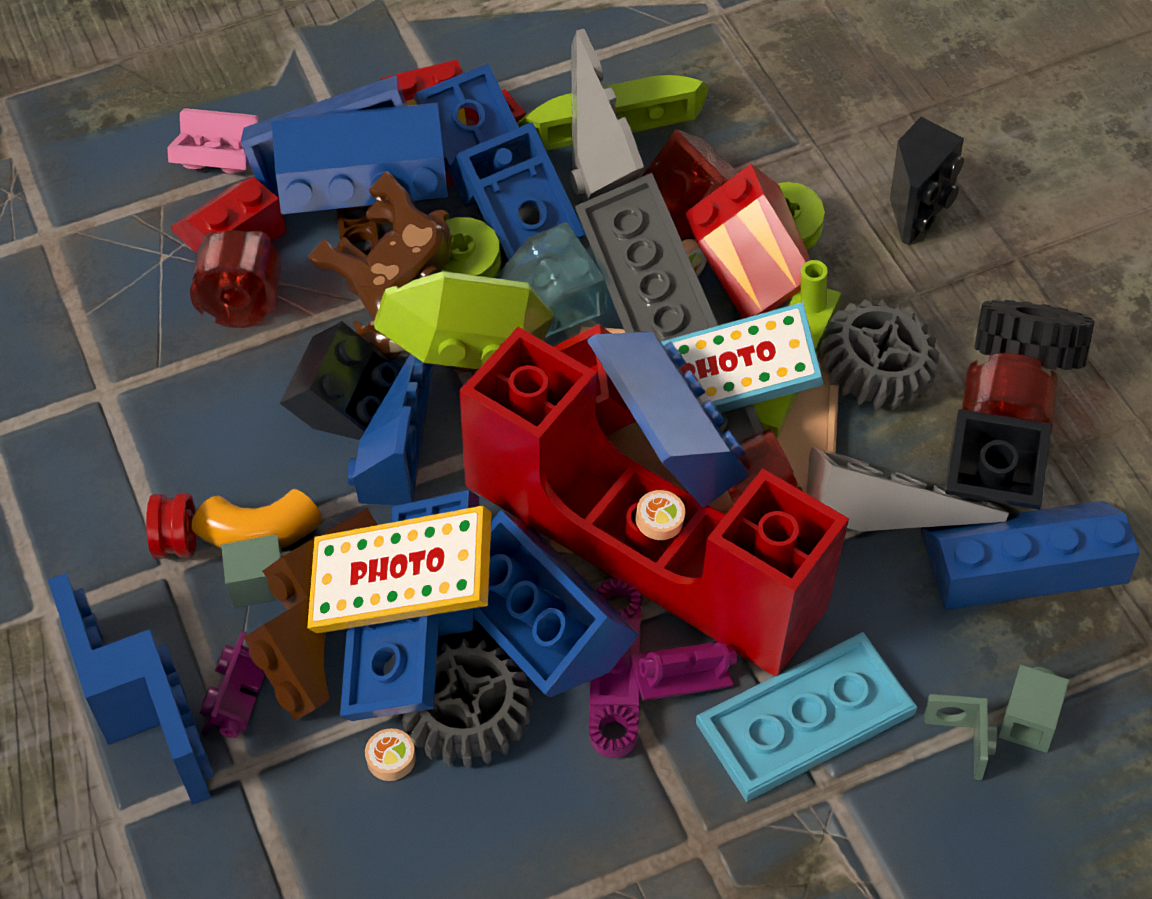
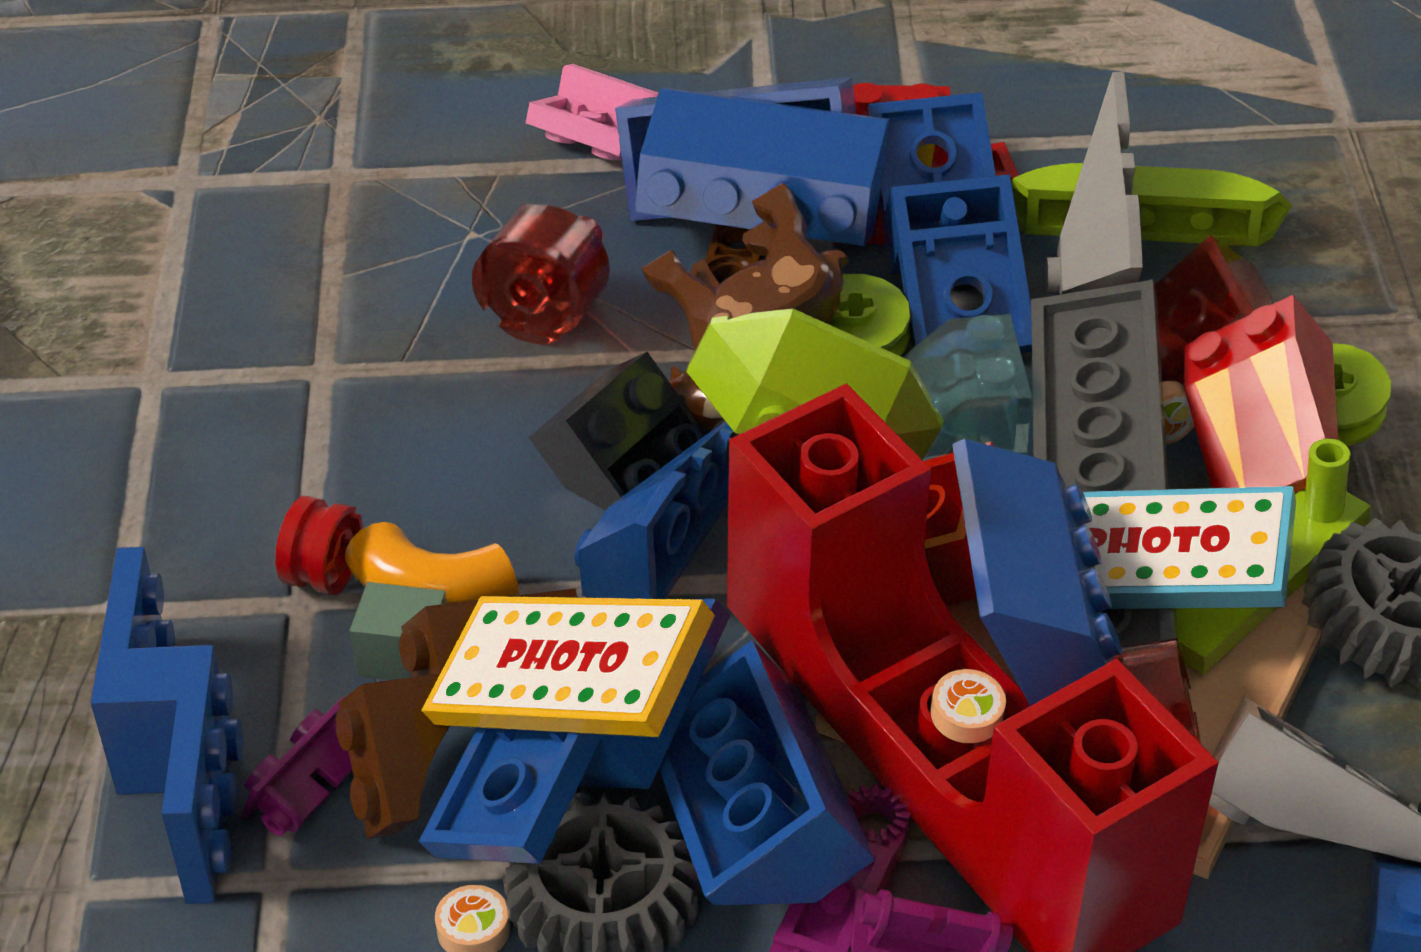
camera: 20 degrees right, 10 degrees down
(241, 207) = (596, 191): red slope -> none

